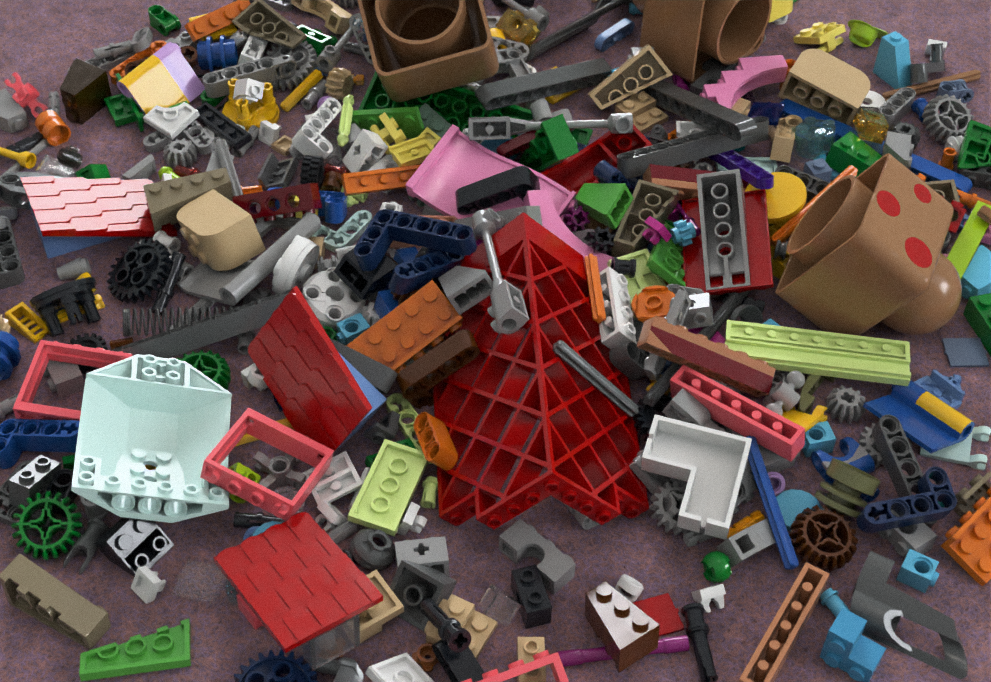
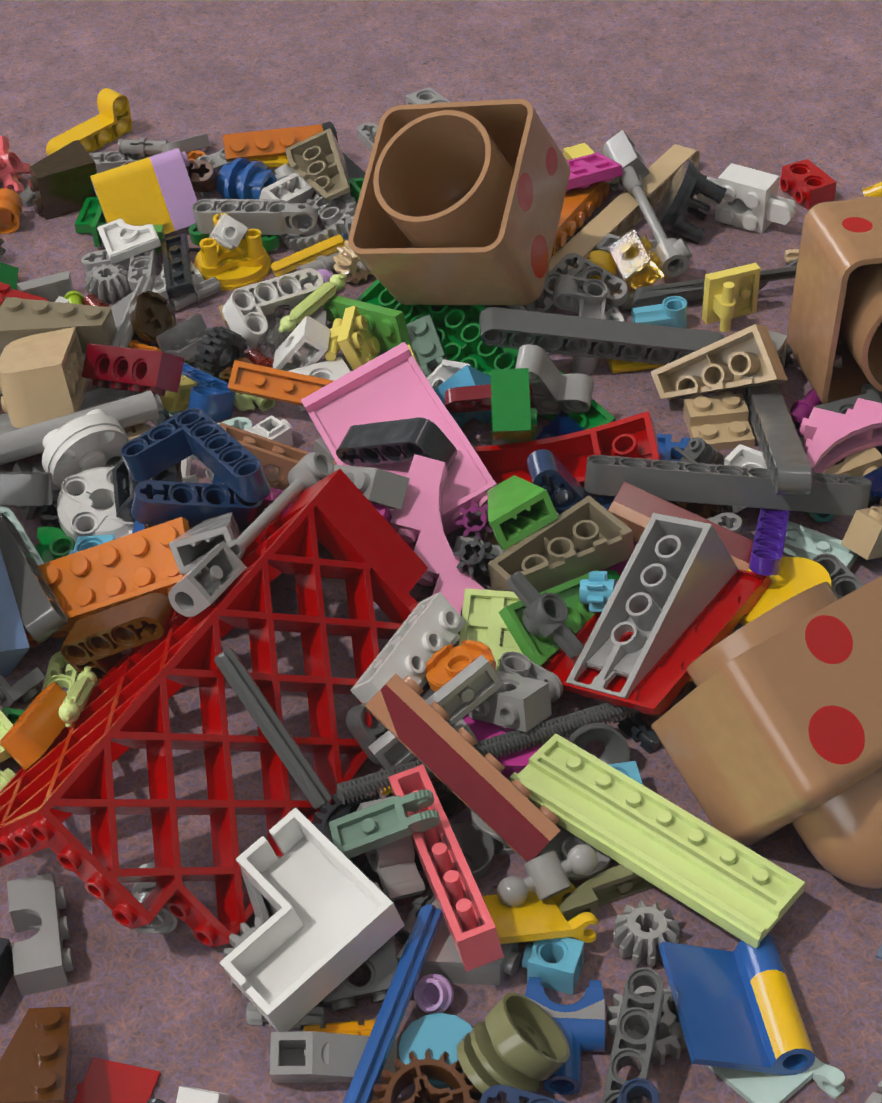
camera: 35 degrees right, 5 degrees down
(60, 49) = (110, 124): none -> yellow beam
(163, 20) = (229, 123): green piece -> none
(242, 166) = (150, 316): none -> dark brown tile
(268, 132) = (224, 289): white tile -> none
(411, 151) = (343, 361): light yellow plate -> none
(443, 414) = (78, 696): none -> yellowish green wheel
(503, 127) = (468, 367): light grey bar -> none
(558, 57) = (669, 313): none -> medium azure piece
(587, 33) = (730, 294): none -> light yellow plate
(595, 288) = (400, 615): orange axle -> none
(613, 34) = (762, 308): medium blue beam -> none
(624, 267) = (471, 604): black bush -> none
(631, 586) = (113, 1035): white tile -> none
(656, 230) = (551, 572): dark pink tile -> none
(674, 256) = (545, 614): none -> dark grey axle
(698, 401) = (383, 823): none -> sand green hinge
(716, 566) = (247, 1069): green piece -> none
(943, 387) = (823, 984): medium blue slope -> none

